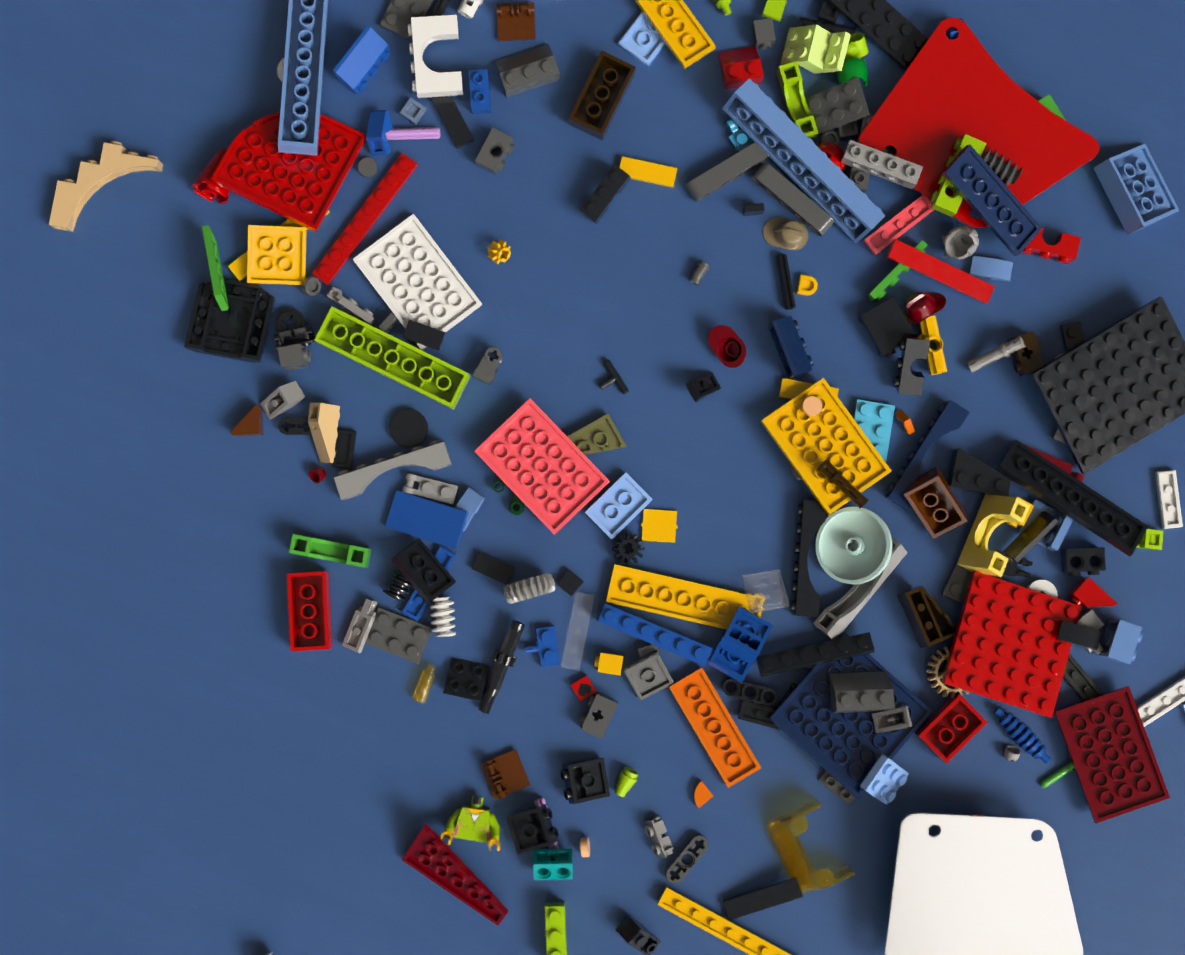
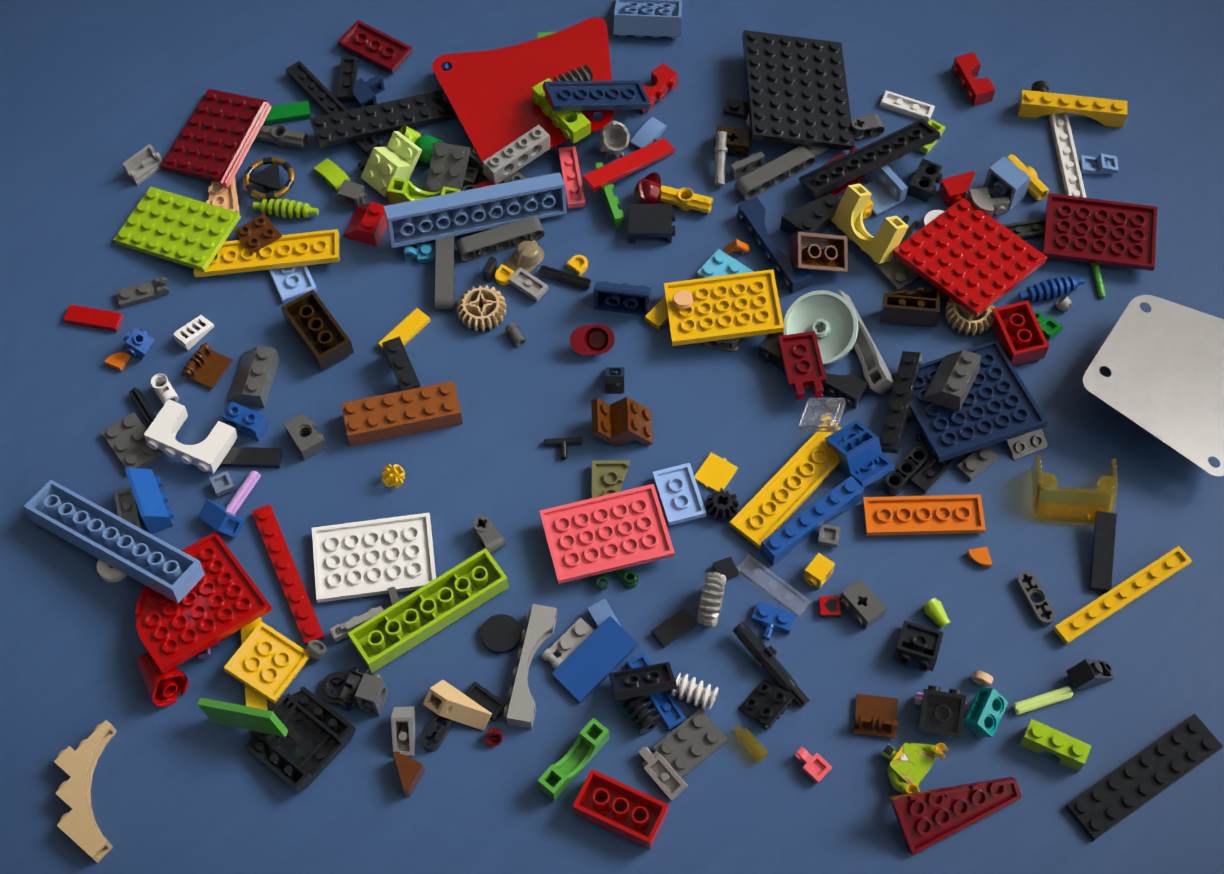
camera: 60 degrees left, 25 degrees down
(338, 51) = (127, 506): none -> light grey plate
(367, 167) = (243, 547): dark grey tile -> none
(424, 335) = (425, 572): black tile -> none
(433, 746) = (814, 766): none -> coral plate
(562, 222) = (401, 413): none -> dark orange brick
(594, 905) = (1042, 700): none -> yellowish green axle
(648, 675) = (847, 543): dark grey tile -> none
(658, 419) = (622, 422): none -> reddish brown bracket
(660, 846) = (1008, 614): light grey hinge -> none
(704, 219) = (470, 308): none -> tan gear
(756, 225) = (503, 274): none -> yellow tile
(758, 253) = (528, 284): none -> light grey plate
(790, 749) = (977, 463): none -> dark grey plate
(806, 548) = (802, 363): none -> dark red tile
(833, 475) = (754, 306): dark brown pin -> none
(884, 780) = (1040, 398): light blue plate -> none
(892, 720) = (990, 364): light grey slope -> none
(912, 347) = (680, 209): black arch -> none
(976, 750) = (1049, 326): none -> green plate
(999, 378) = (747, 165): none -> dark grey plate
(1012, 413) = (774, 172): none -> dark grey beam
(1030, 536) = (883, 198): tile -> none
(1078, 635) = (985, 206): black slope -> none
(1120, 475) = (867, 126): none -> dark grey piece
(1144, 655) = (1035, 187): none -> yellow piece

